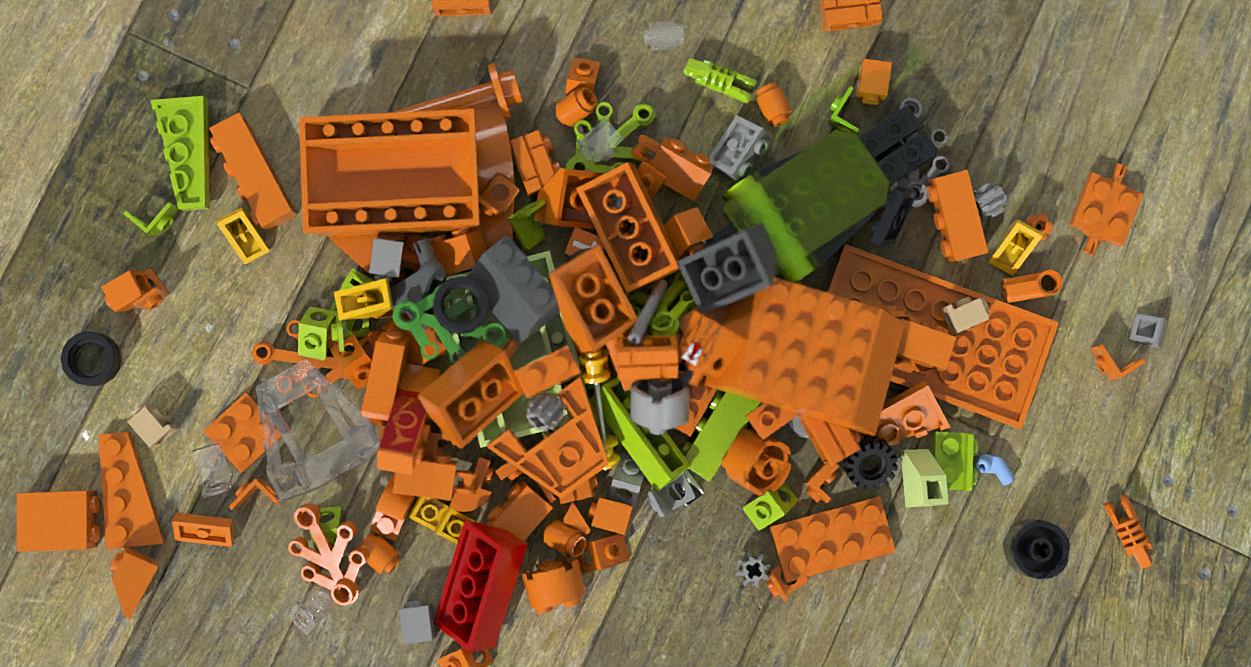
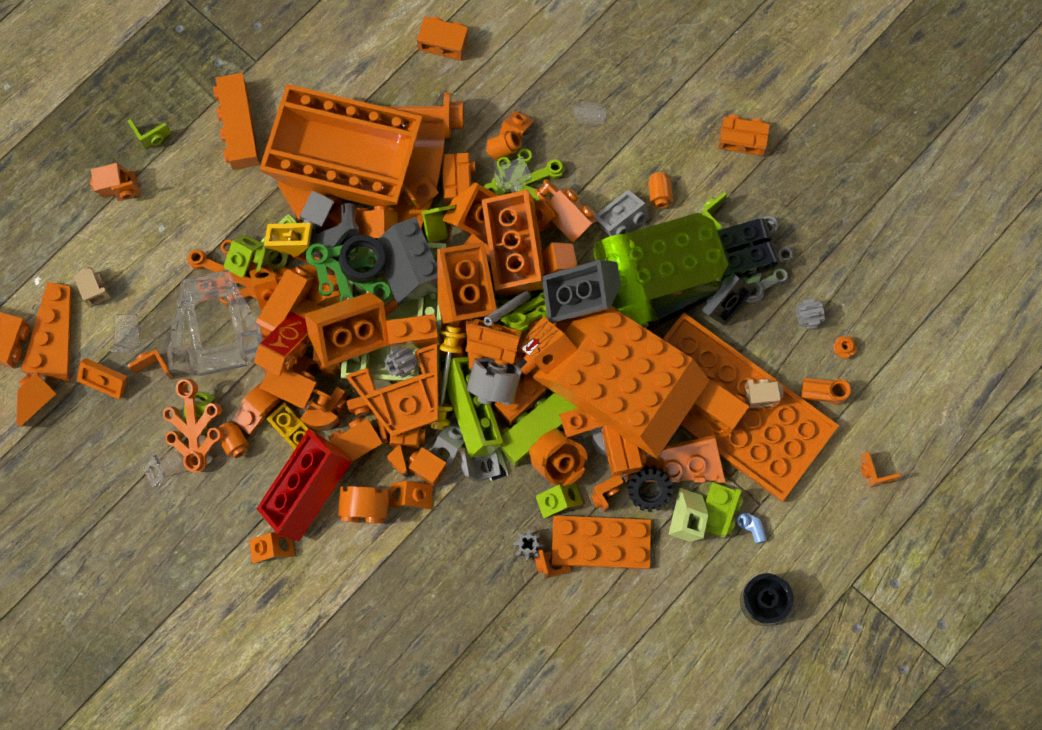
camera: 20 degrees right, 10 degrees down
(69, 355) = (54, 208): black tyre -> none
(186, 144) = (194, 84): lime wing -> none
(240, 432) = (156, 314): orange plate -> none
(243, 235) = (213, 164): yellow slope -> none
(417, 622) = (243, 502): light grey brick -> none
(564, 539) = (384, 473): orange brick -> none
(719, 79) = (623, 158): lime hinge -> none
(873, 81) = (745, 195): orange brick -> none
(957, 216) = (780, 317): orange brick -> none
(1015, 246) = (820, 355): yellow slope -> none
(1105, 209) = (904, 350): orange plate -> none
(1130, 532) = (850, 612): orange hinge -> none
(1149, 330) = (913, 456): light grey slope -> none

